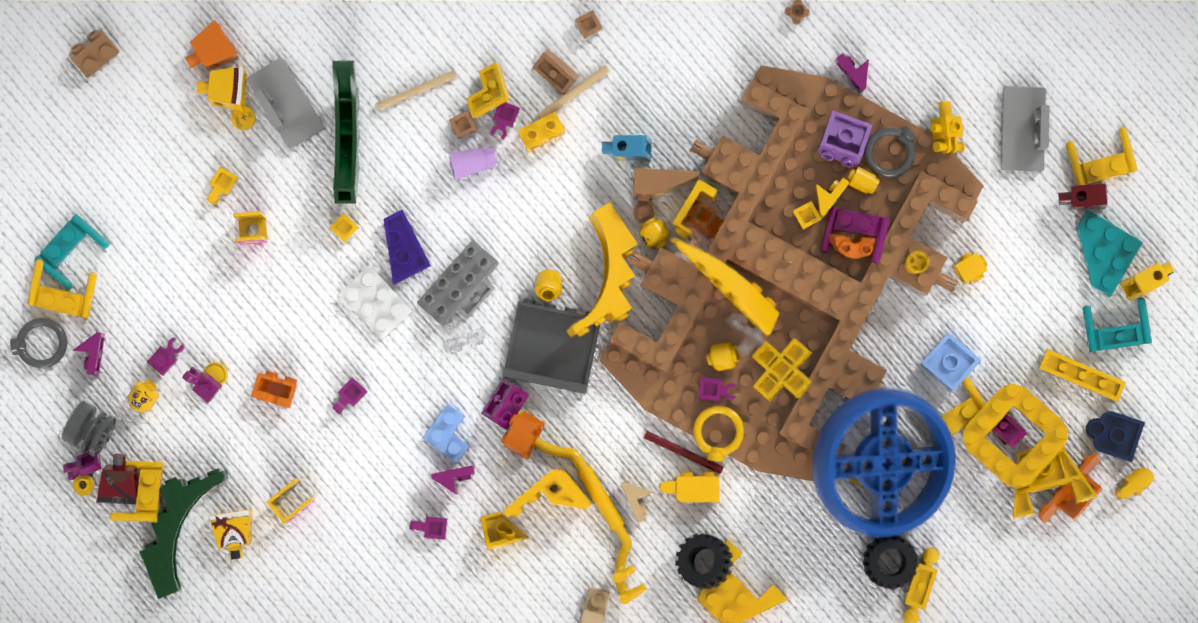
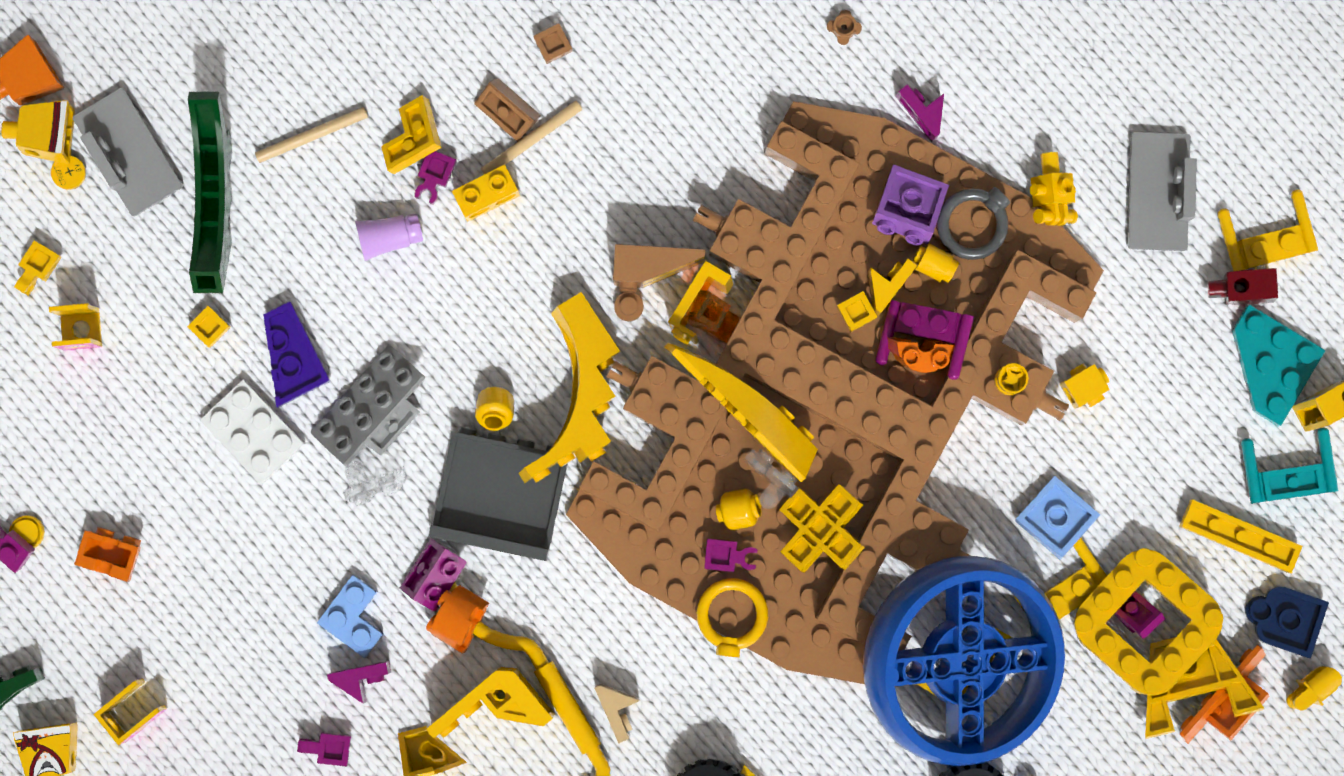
camera: 10 degrees left, 0 degrees up
(351, 394) = (216, 560): magenta plate -> none
(463, 124) = (376, 183): medium nougat plate -> none
(638, 148) = (620, 216): dark azure torso -> none
(654, 233) = (643, 336): yellow head -> none
(683, 452) = (683, 643): dark red bar -> none
(693, 488) = (697, 694): yellow hinge -> none

